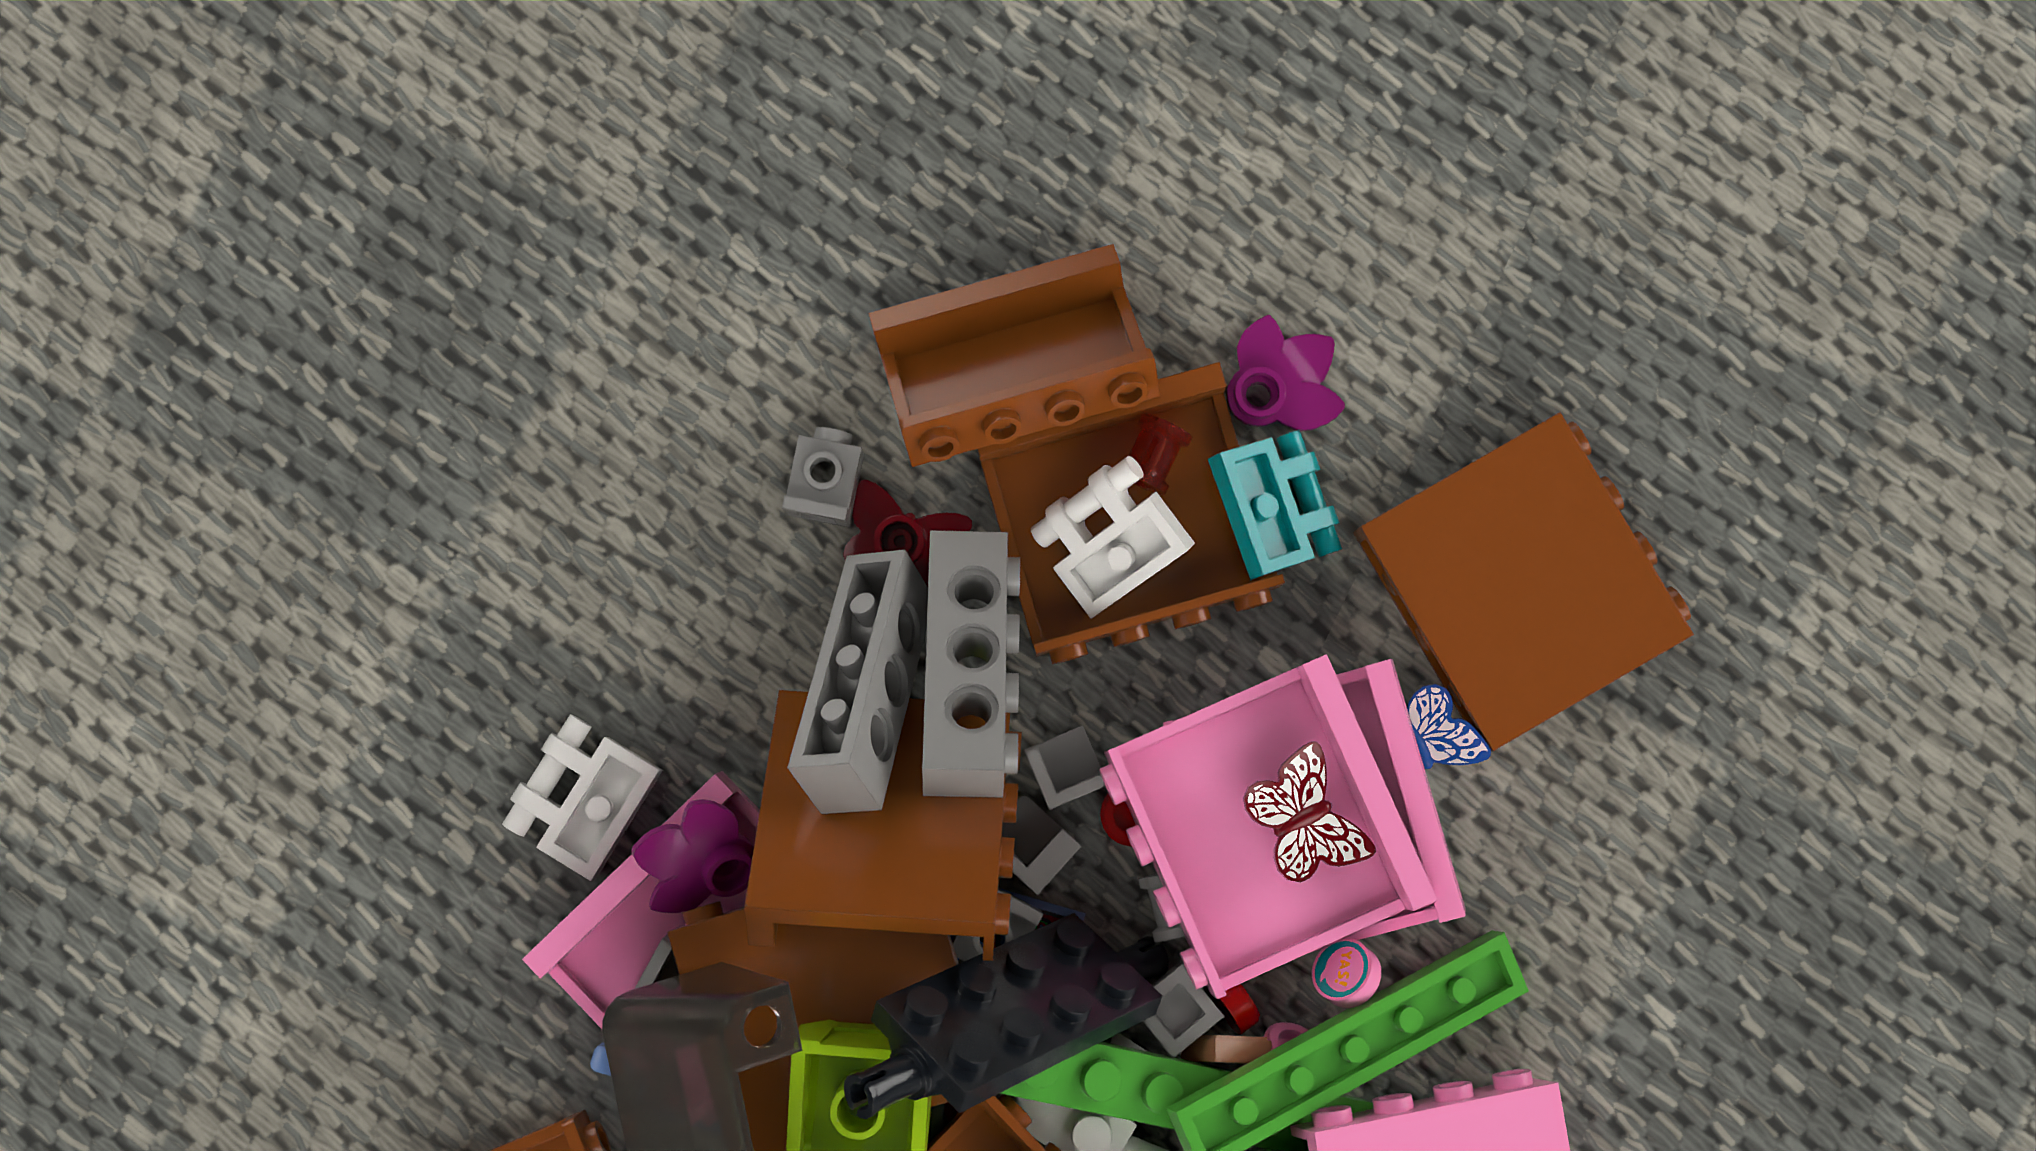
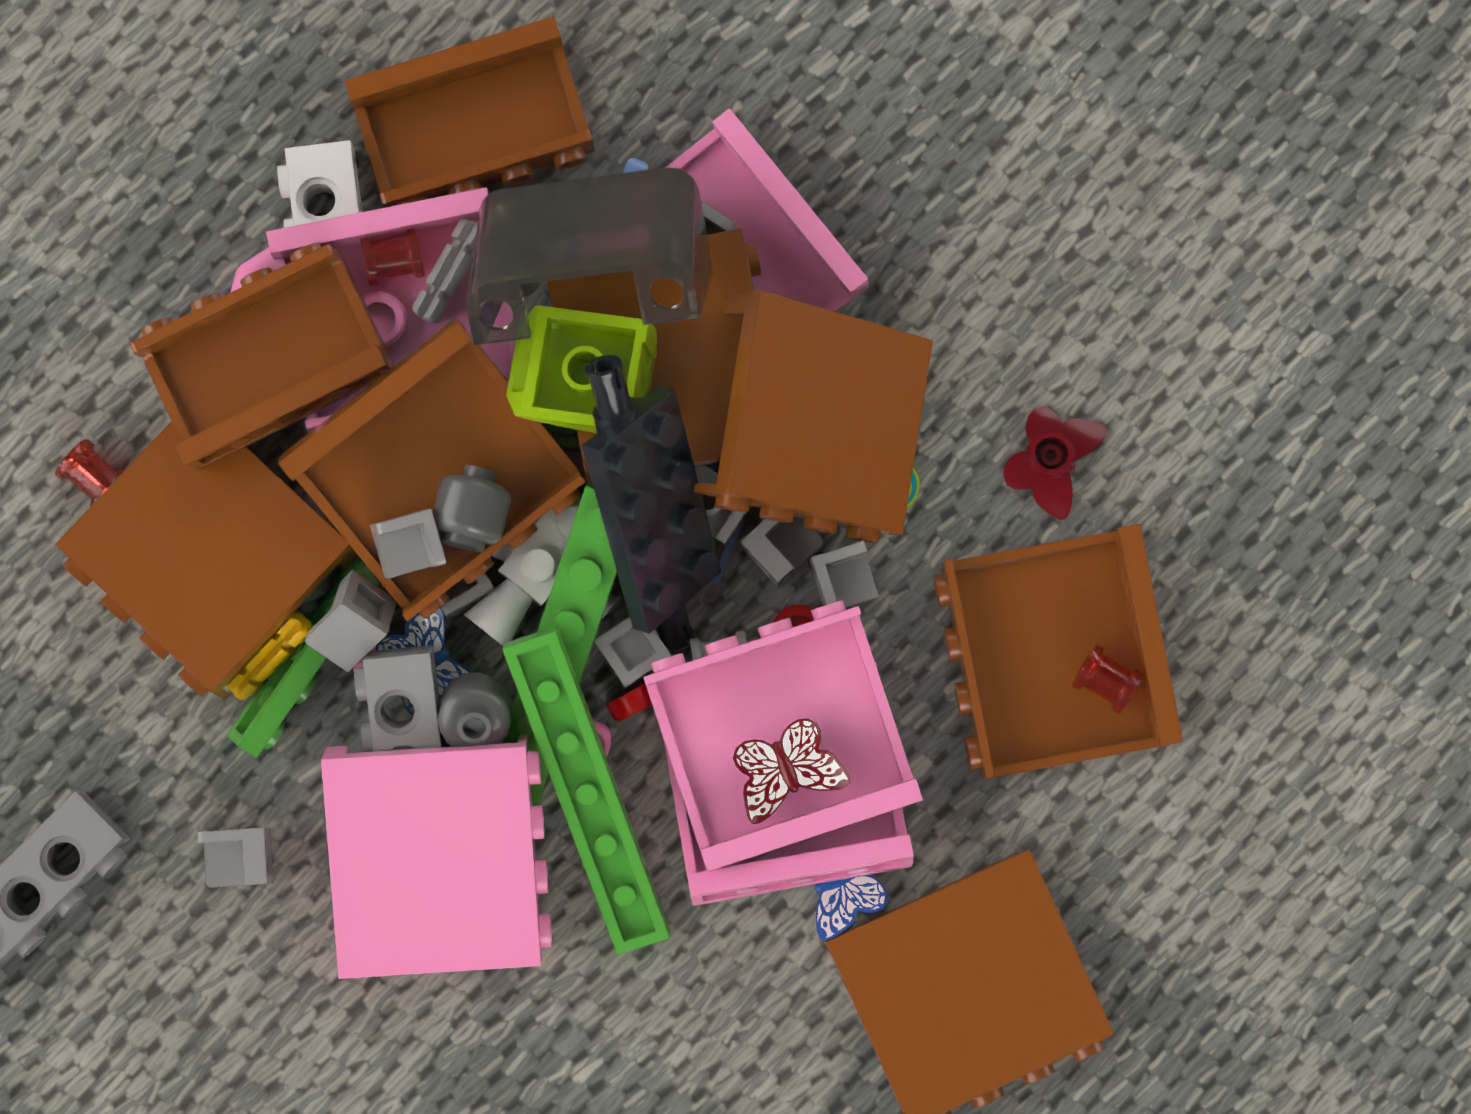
camera: 85 degrees right, 0 degrees up
(596, 809) = (847, 181): white plate -> none
(695, 858) = (801, 253): magenta plate -> none
(827, 501) = (1091, 399): light grey brick -> none
(861, 684) = (934, 408): light grey brick -> none
(954, 757) = (1021, 499): light grey brick -> none
(1014, 355) = (1203, 565): dark orange panel -> none
(1125, 552) = (1024, 644): white plate -> none
(1226, 1049) = (596, 686): nougat tile -> none
(1263, 507) = (1052, 768): teal plate -> none
(1290, 373) = (1169, 809): magenta plate -> none
(1346, 973) = (649, 796): bright pink tile -> none

